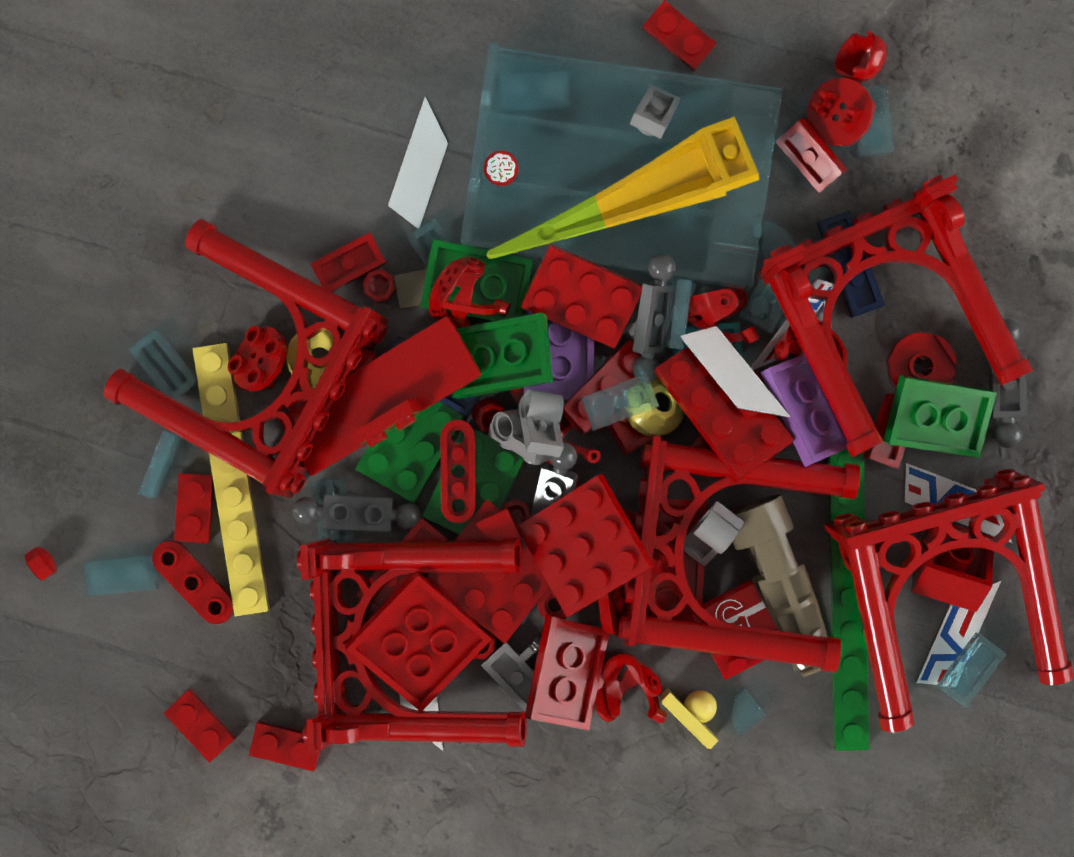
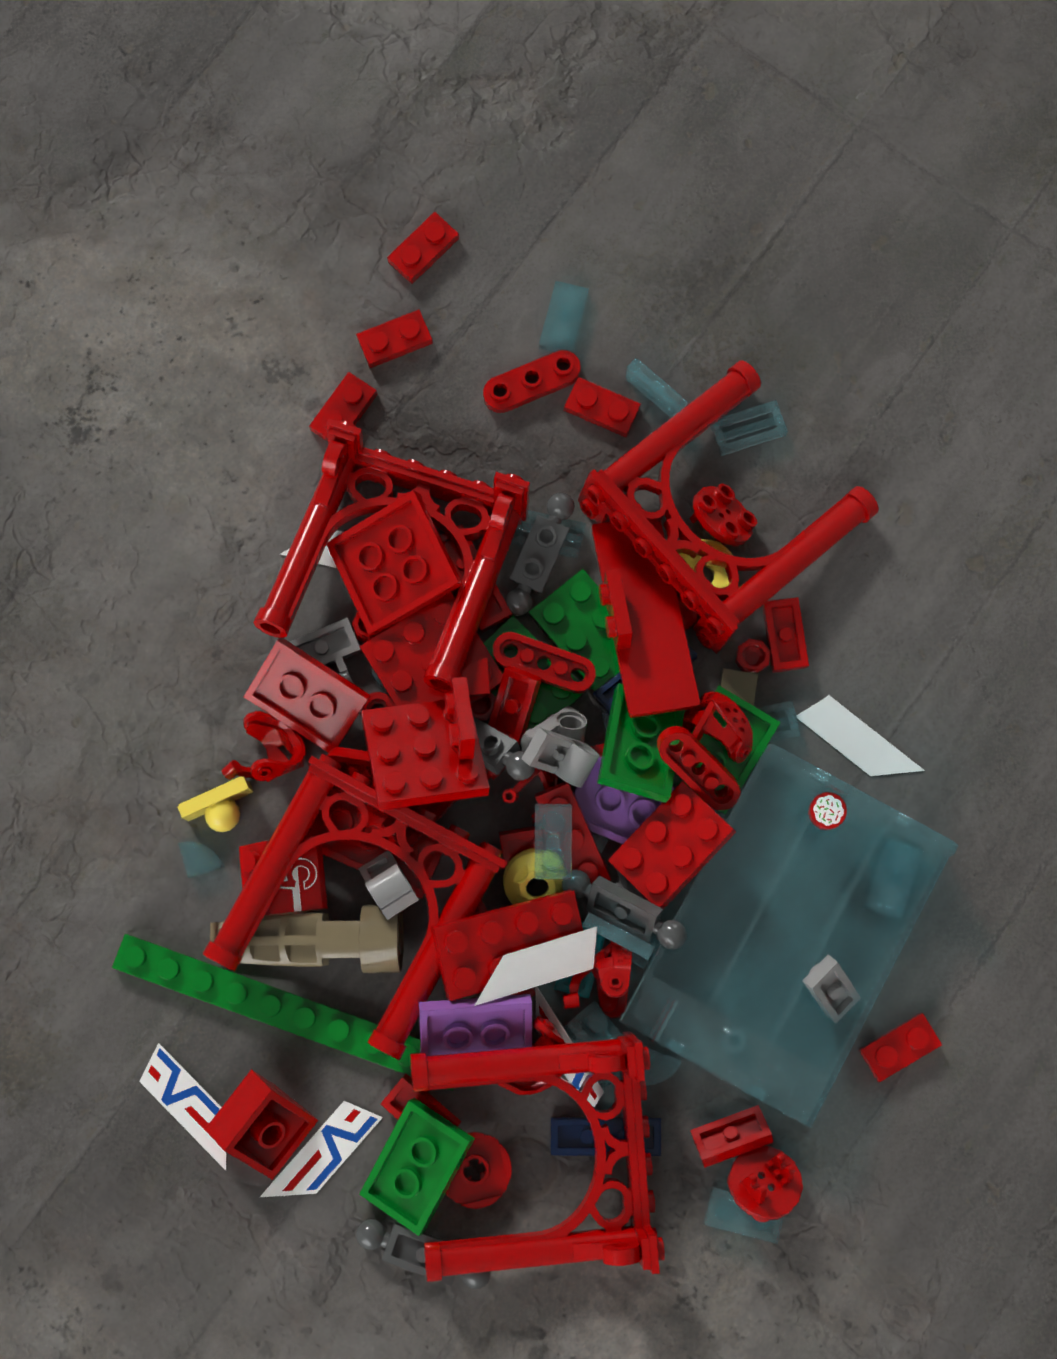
camera: 105 degrees right, 10 degrees down
(41, 563) = (603, 249): red tile -> none
(100, 733) = (423, 247): none -> red plate
(232, 487) = (604, 447): light yellow plate -> none
(485, 411) = (592, 711): red tile -> none
(505, 483) = (514, 702): none -> red plate
(512, 289) = (701, 779): none -> red plate
(555, 518) = (462, 730): none -> red plate
(687, 174) = (756, 988): yellow plate -> none
(861, 57) = (814, 1227): red hair -> none
(971, 670) = (148, 1102): clear light blue plate -> none
(1005, 494) = (314, 1208): red arch -> none

